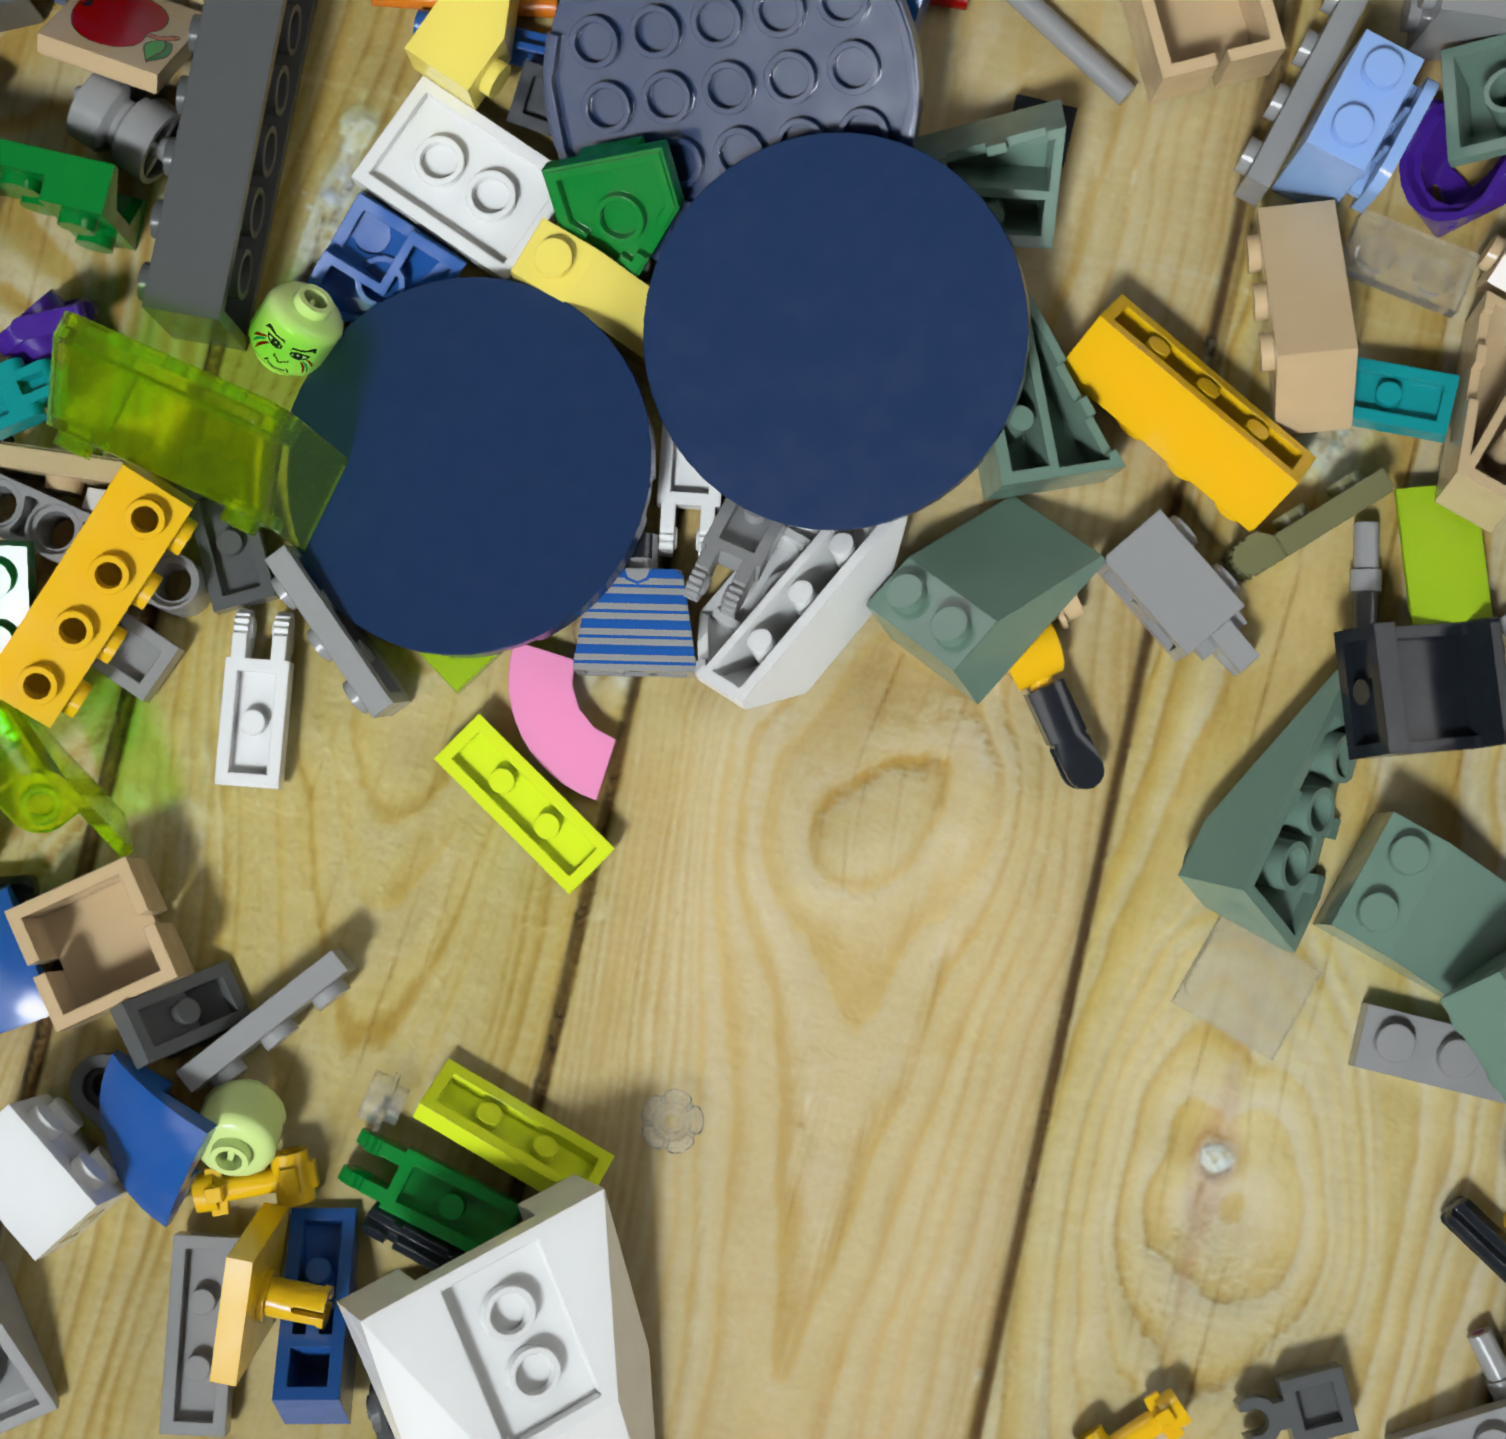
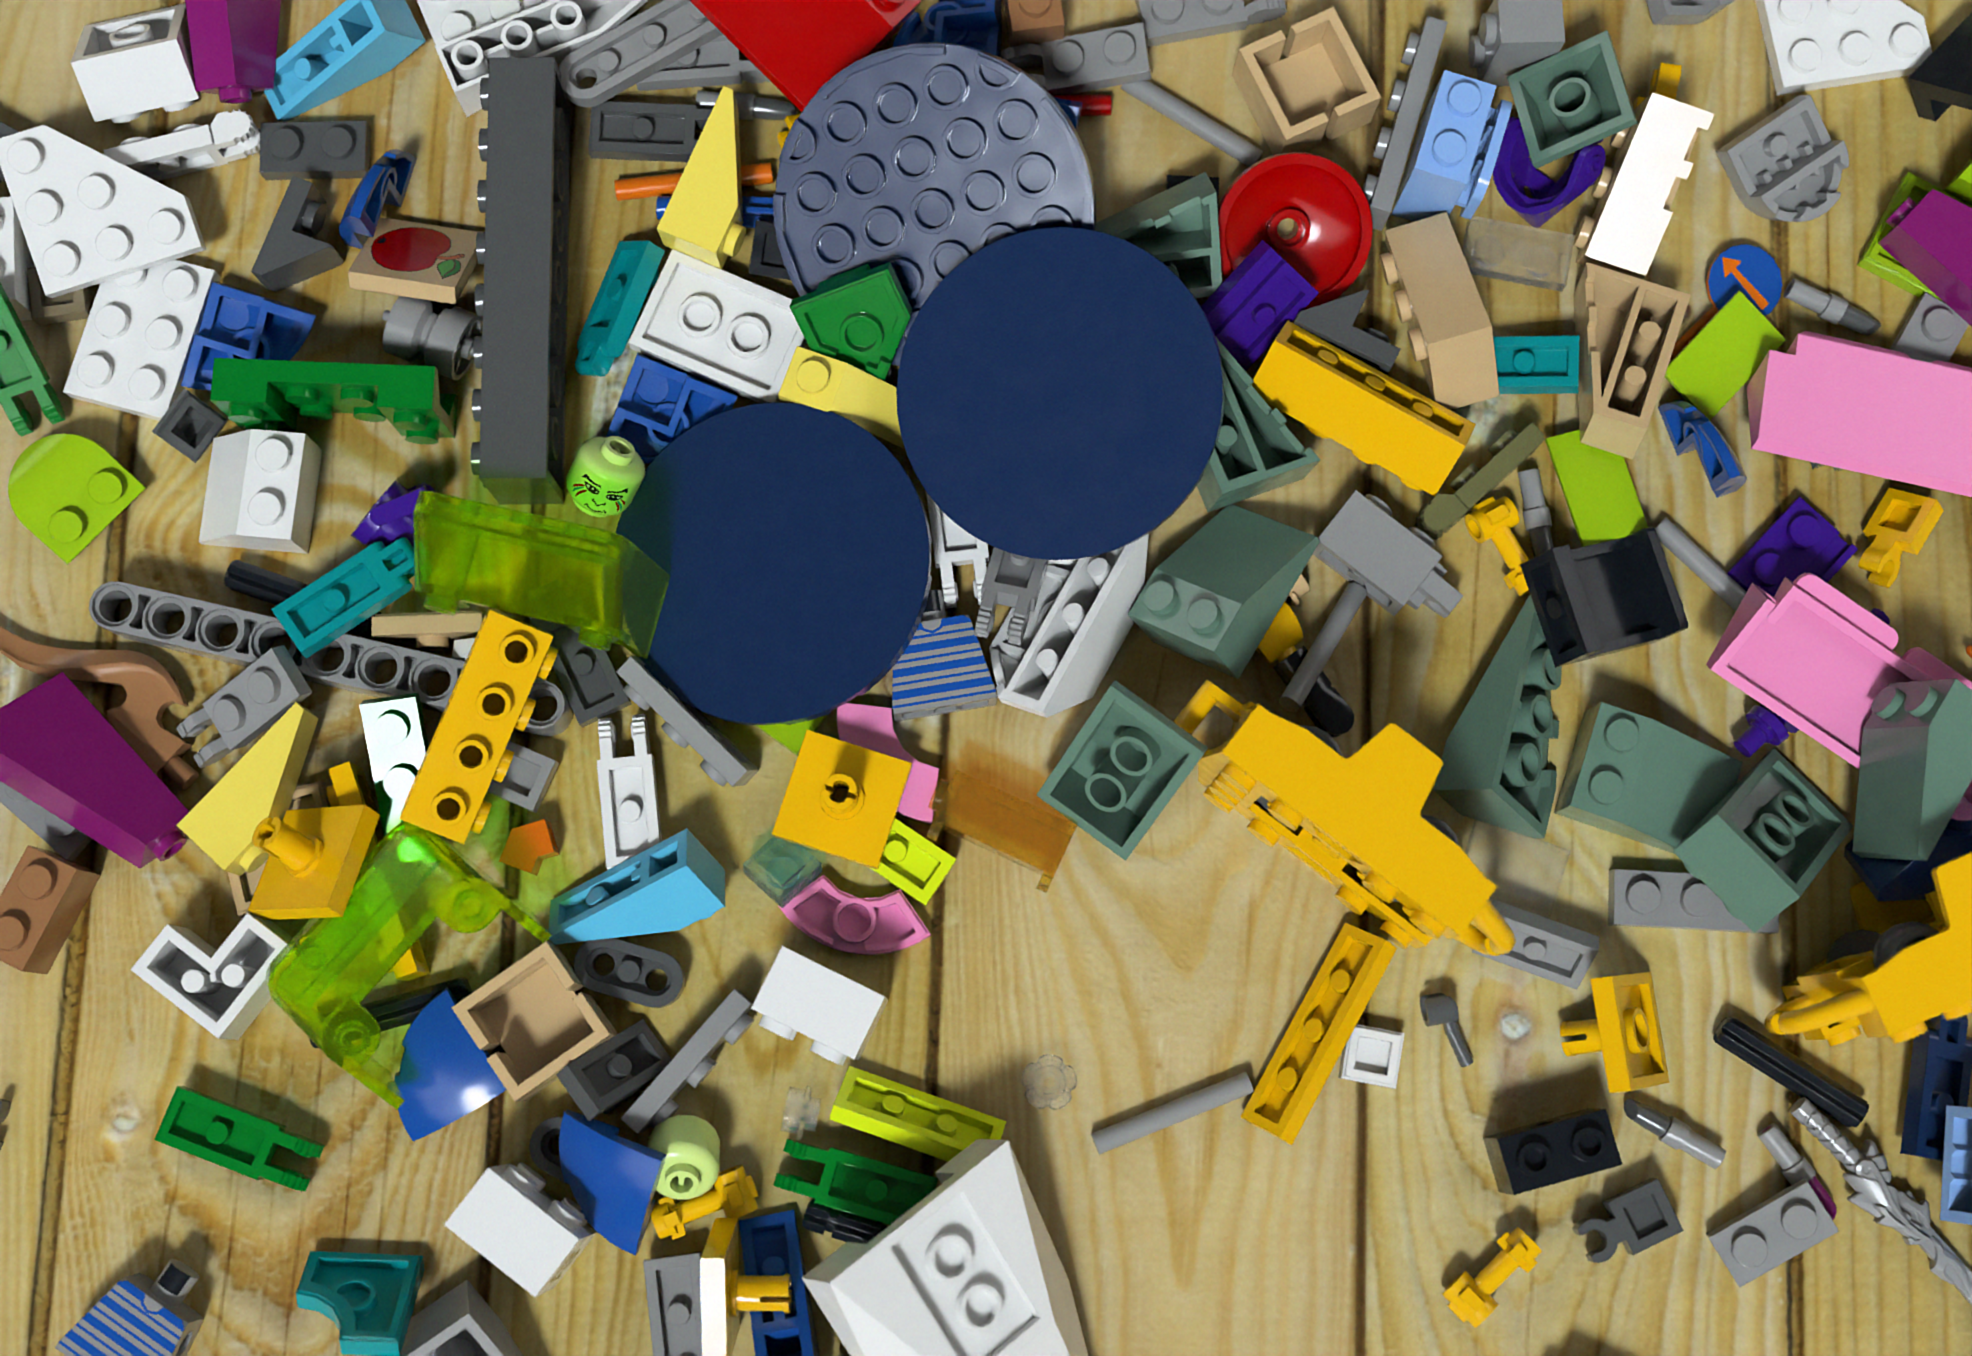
camera: 10 degrees left, 5 degrees down
(133, 740) = (529, 846): none -> orange piece
(222, 906) = (630, 972): none -> dark grey plate
(252, 821) = (643, 895): none -> medium azure slope
(347, 131) = (617, 306): none -> teal hinge
(414, 820) = (782, 869): none -> clear light blue plate
(422, 989) = (820, 1005): none -> white brick
(484, 897) = (855, 923): none -> bright pink tile
(496, 756) = (842, 799): none -> yellow tile
(673, 818) = (1000, 824): none -> clear yellow brick
(805, 1182) = (1172, 1112): none -> light grey bar
(819, 787) = (1121, 770): none -> sand green slope
(989, 1125) = (1318, 1033): none -> yellow plate
(1044, 1161) = (1372, 1056): none -> white tile
(1073, 895) = (1352, 821): none -> yellow piece
(1084, 685) = (1322, 647): none -> light grey bar
(1088, 267) = (1256, 303): none -> dark purple plate
(1134, 1125) = (1442, 1009): none -> dark grey hand
(1174, 223) = (1328, 216): none -> red dish
(1175, 310) = (1334, 325): none -> dark grey slope
(1228, 1312) = (1552, 1151): none -> black brick
(1259, 1072) = (1546, 947): none -> light grey plate
(1313, 573) = (1493, 521): none -> yellow bar
(1339, 1194) = (1624, 1032): none -> yellow tile
(1373, 1316) = (1675, 1133): none -> light grey piece

